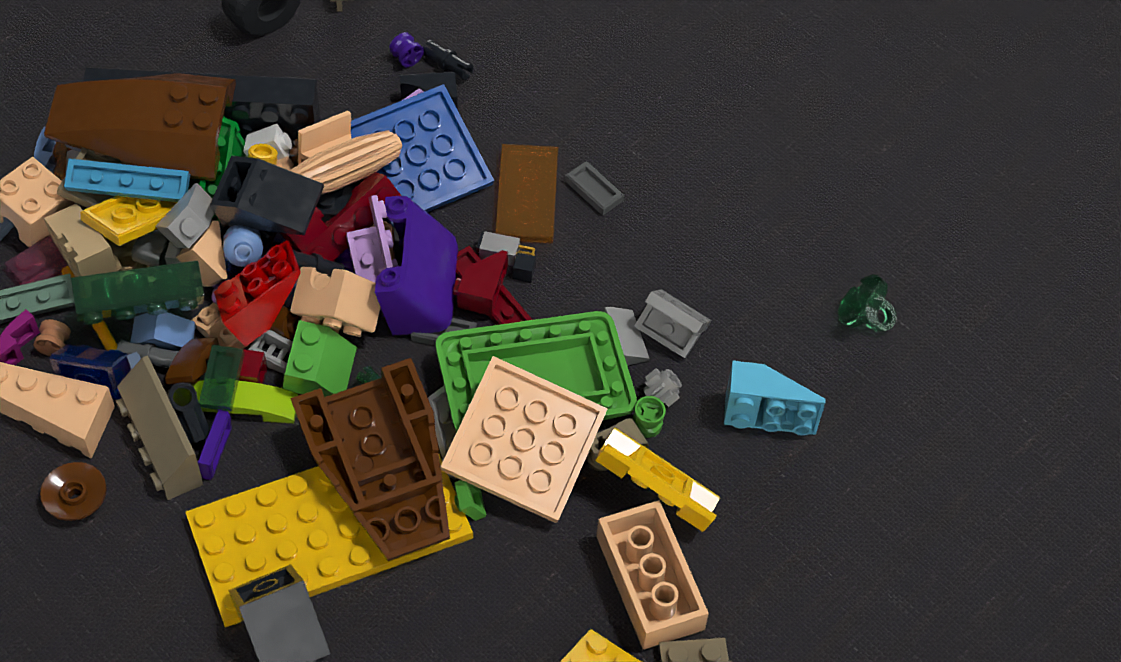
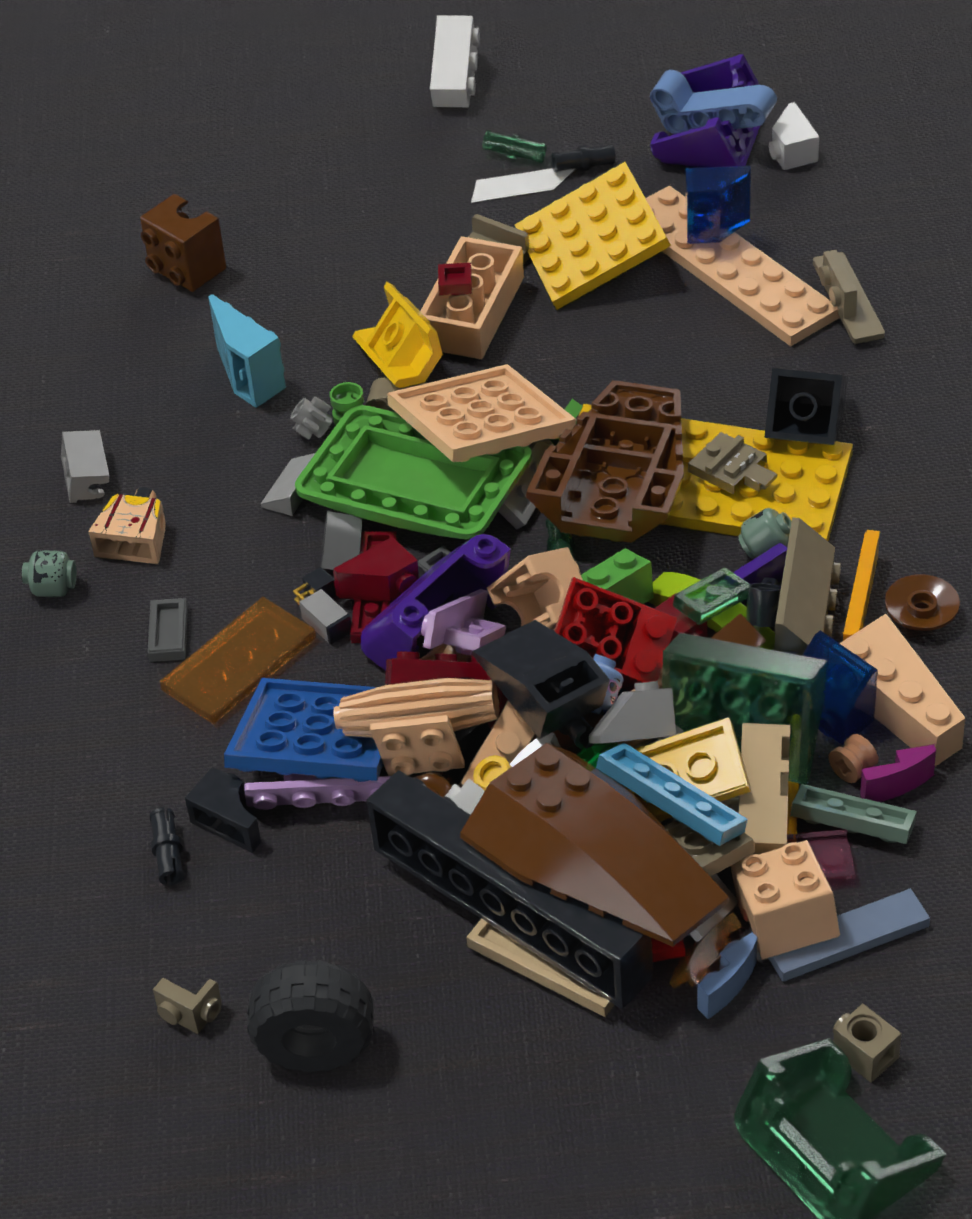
camera: 135 degrees left, 10 degrees down
(126, 474) = (862, 584): none -> light orange tile
(229, 477) = (764, 532): none -> sand green head
(299, 526) = (728, 460): none -> dark tan piece
(406, 49) = (200, 880): dark purple wheel -> none
(537, 298) = (340, 539): none -> dark grey slope
(657, 543) = (454, 279): none -> dark red plate
(671, 322) = (239, 454): light grey bracket -> none
(691, 232) = (130, 528): none -> light nougat torso
(704, 168) = (49, 573): none -> sand green head
(782, 257) = (83, 464): none -> light grey hinge
(862, 304) = (66, 382): clear green tile -> none
(936, 472) = (182, 247): none -> reddish brown piece

